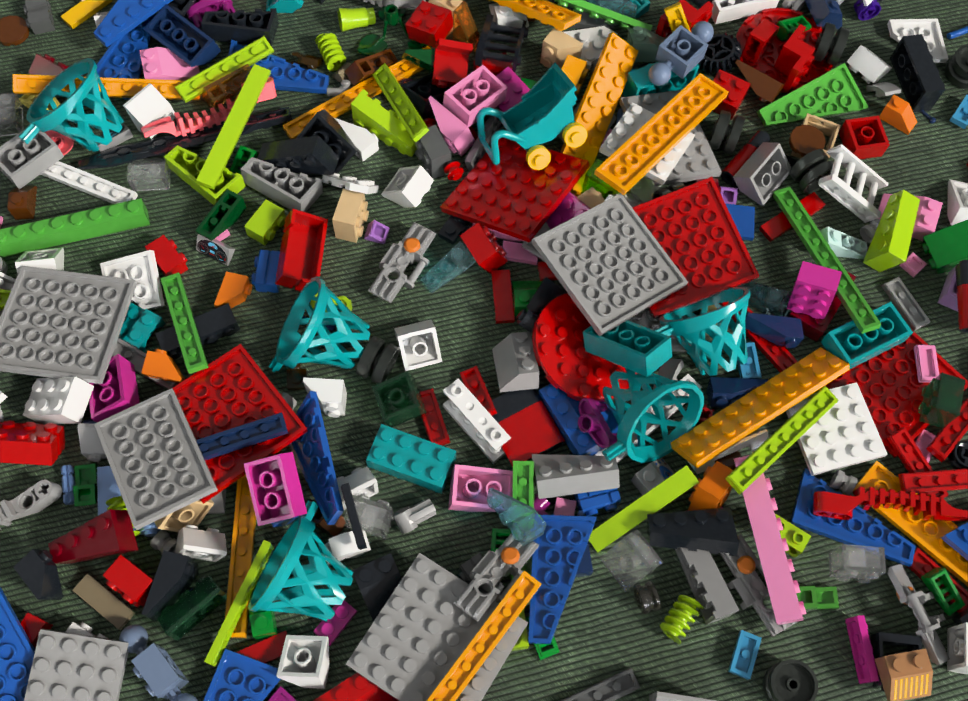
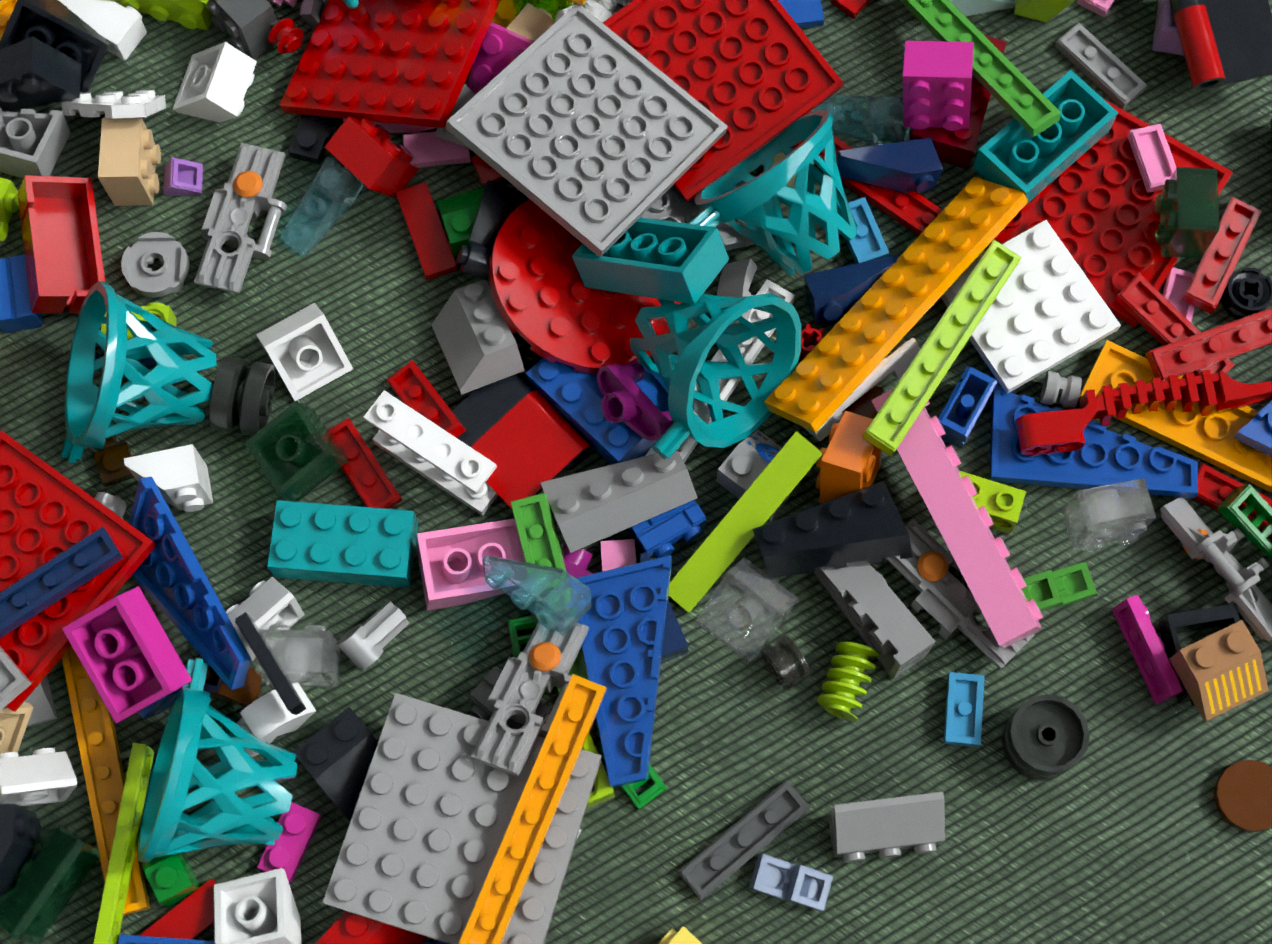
camera: 10 degrees left, 5 degrees up
(352, 285) = (157, 283): none -> light grey plate
(786, 476) = (965, 406): none -> blue brick

